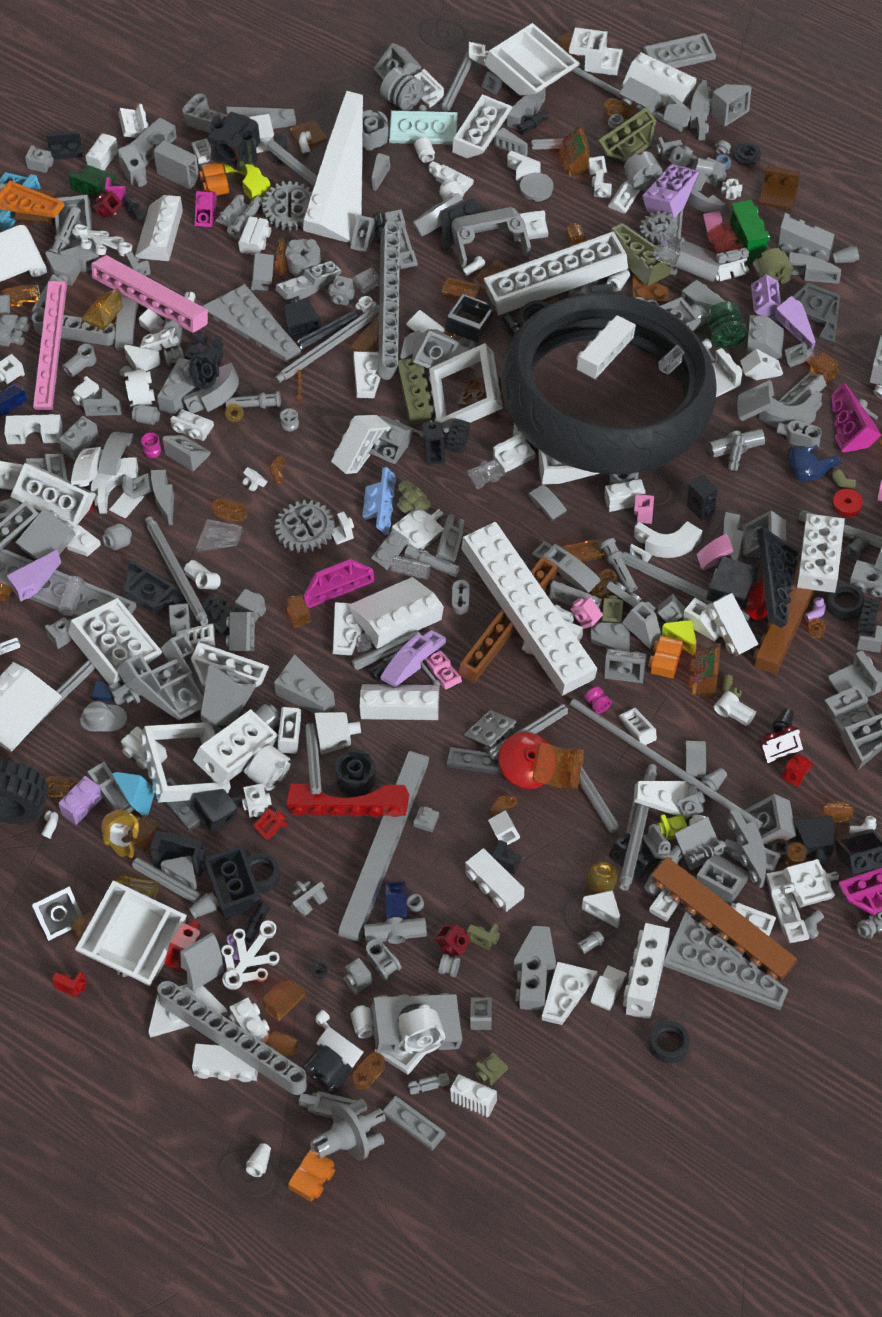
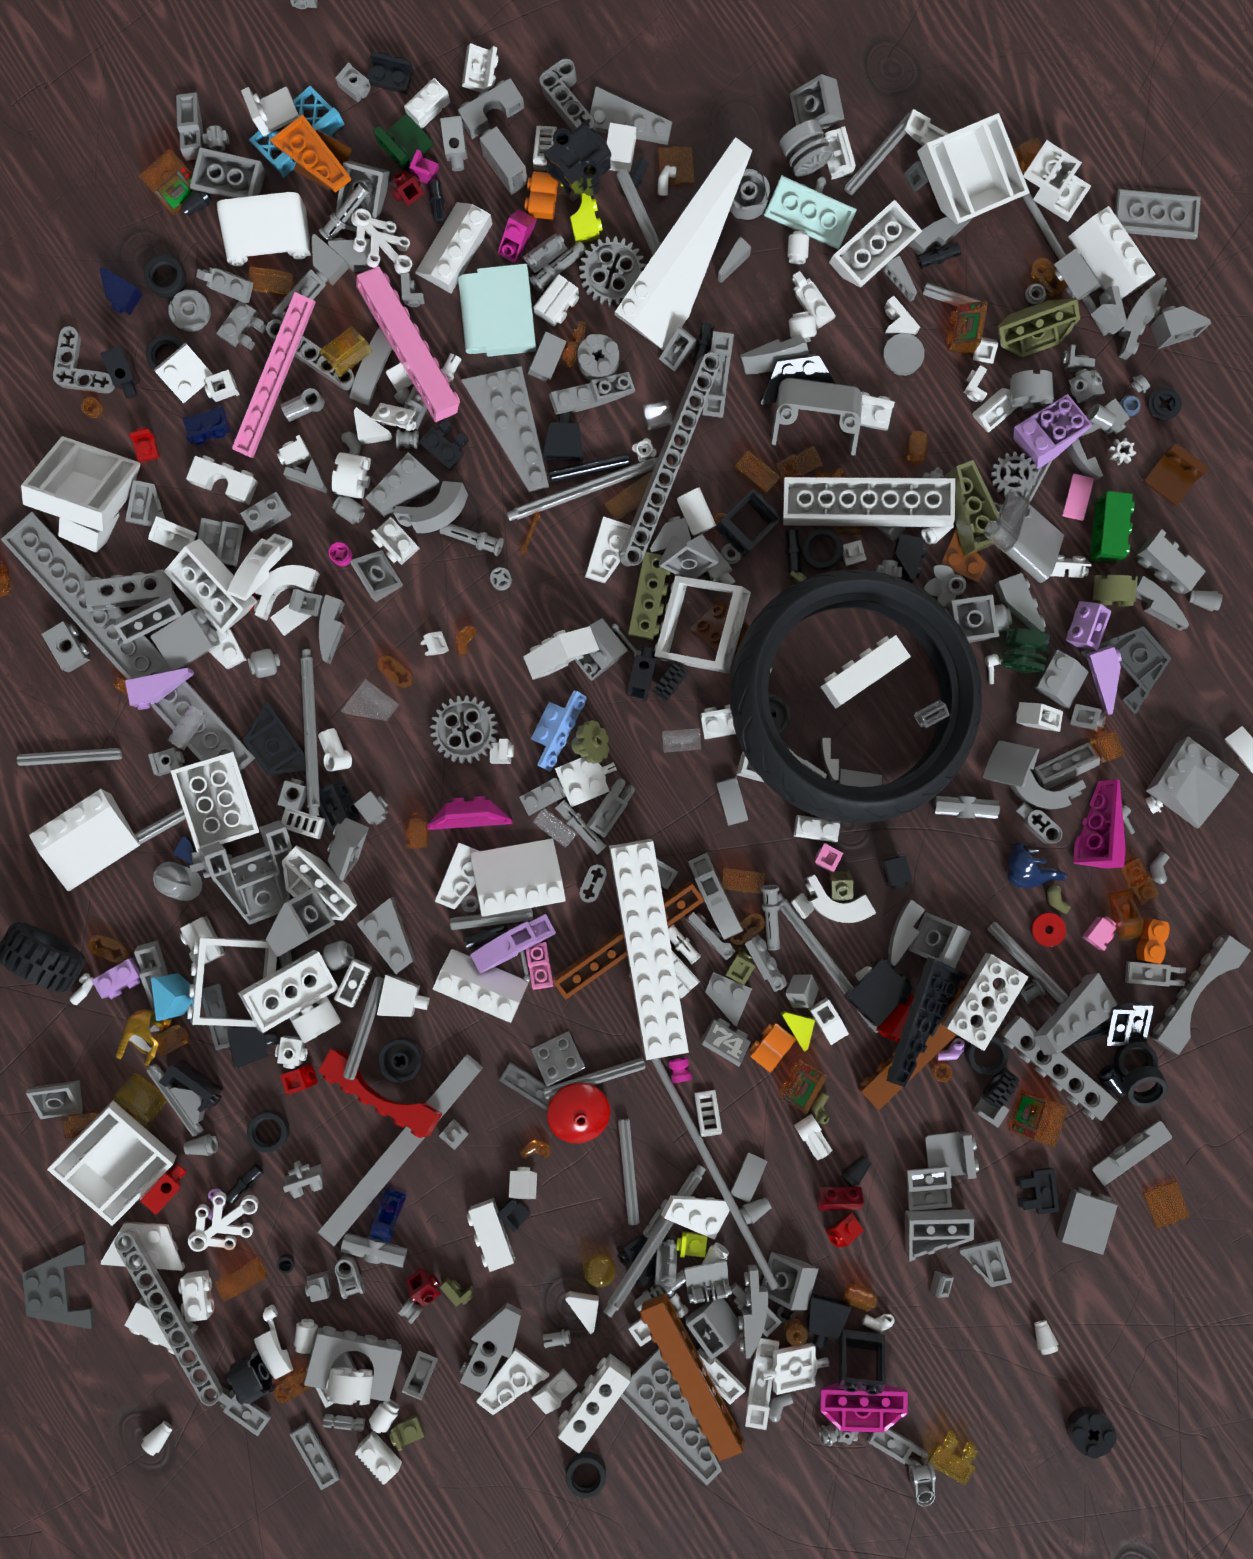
camera: 20 degrees right, 30 degrees up
(69, 986) = (39, 1181): red bracket -> none
(107, 1076) = (48, 1292): none -> dark grey wing
(113, 452) = (295, 551): light grey slope -> none
(201, 371) = (419, 493): black cone -> none
(202, 961) = (171, 1220): light grey slope -> none
(211, 256) = (497, 311): none -> light aqua piece
(232, 881) = (231, 1138): black slope -> none
(234, 407) = (443, 550): clear yellow plate -> none
(282, 1043) = (221, 1327): clear orange brick -> none
(311, 1175) = (199, 1474): orange brick -> none
(341, 290) = (625, 417): light grey brick -> none
(349, 1131) = (240, 1458): light grey piece -> none
(415, 902) = (403, 1231): light grey hinge -> none
(463, 1060) = (384, 1416): none -> white brick
(478, 263) = (786, 445): white arm -> none
(558, 766) = (605, 1138): clear orange bracket -> none
(586, 612) = (711, 965): bright pink brick -> none
(643, 624) = (763, 1002): light grey slope -> none
(665, 524) = (841, 885): none -> olive bracket
(692, 803) = (722, 1236): light grey bracket -> none
(711, 553) = (877, 944): bright pink slope -> none
(723, 238) = (1076, 532): clear red brick -> none
(727, 372) = (995, 710): white bracket -> none
(731, 625) = (852, 1046): white brick -> none
(732, 255) = (1076, 558): light grey axle -> none
(736, 452) = (958, 824): light grey axle -> none

